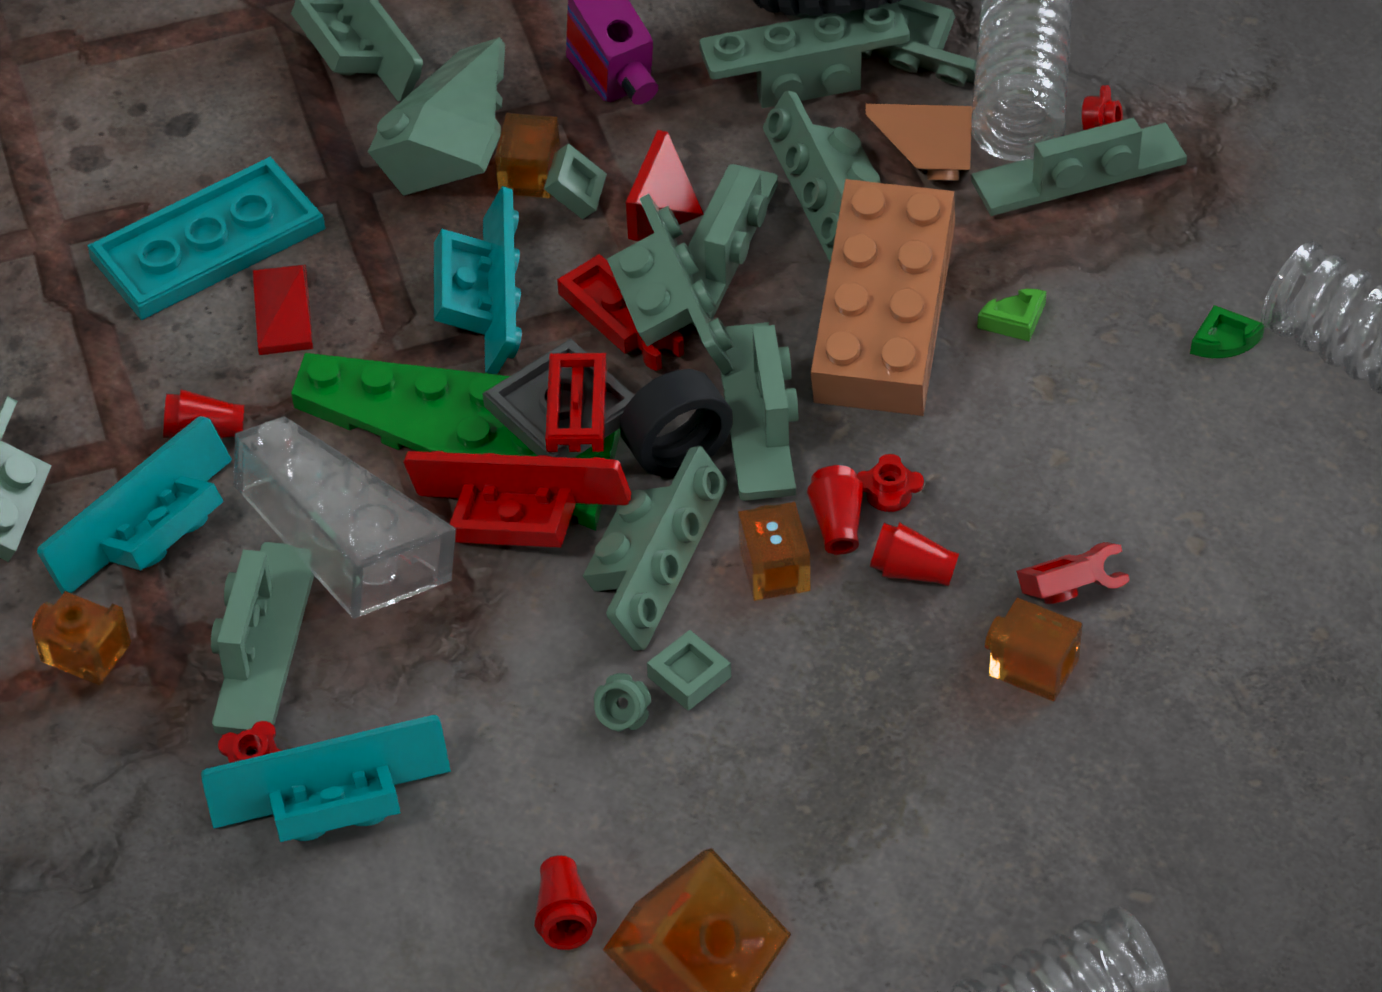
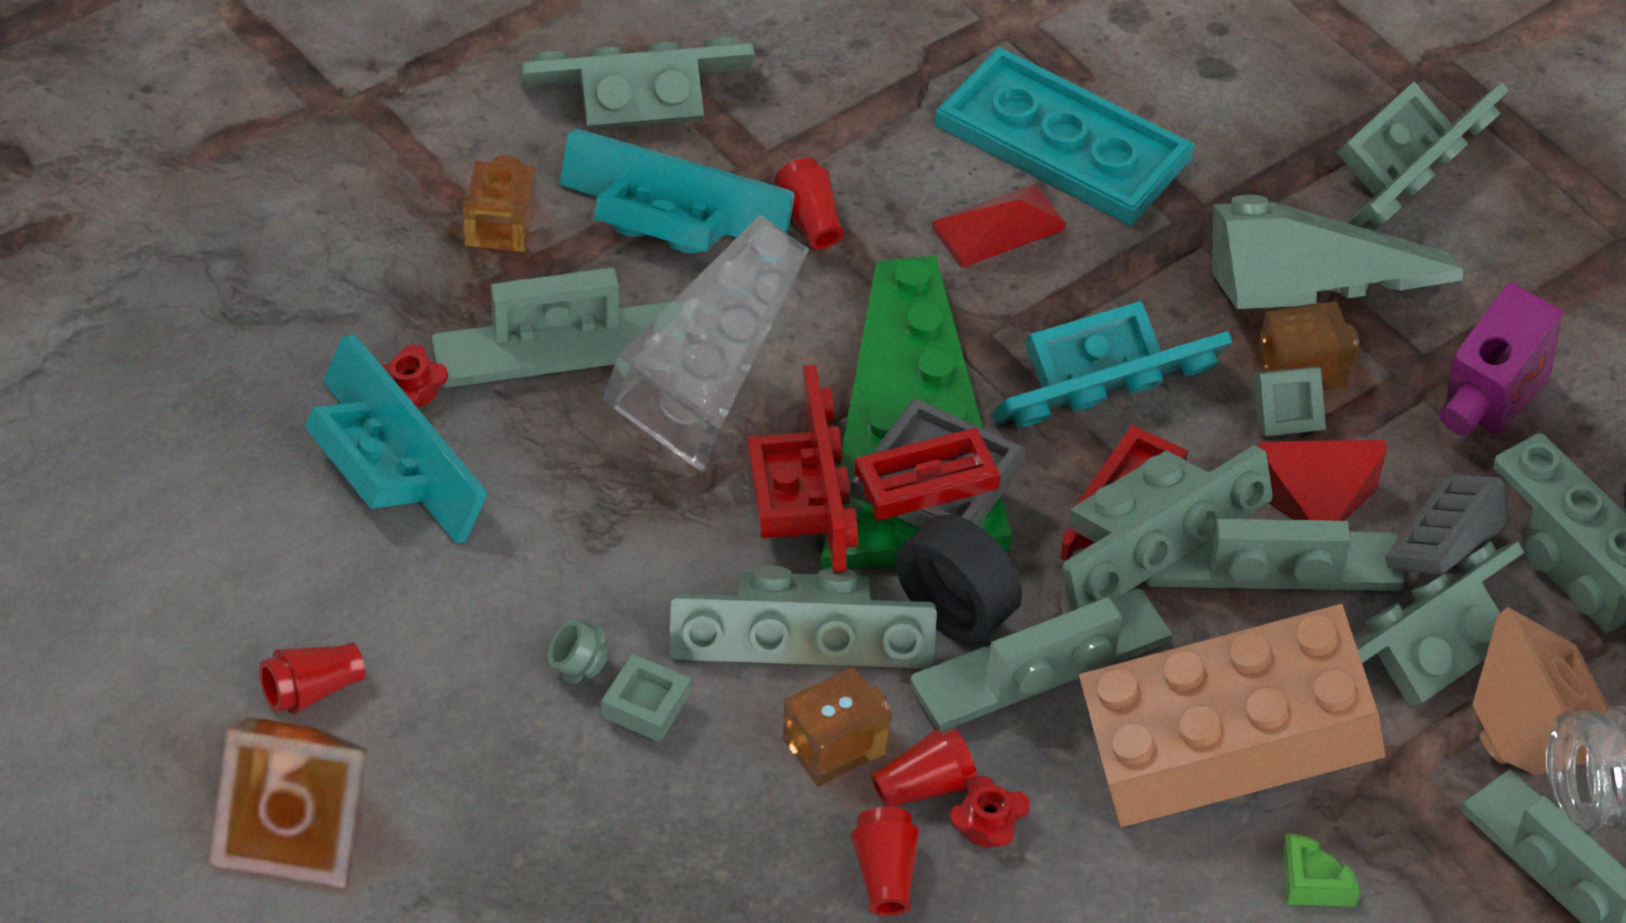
camera: 65 degrees right, 0 degrees up
(746, 124) = (1451, 525): none -> dark grey slope

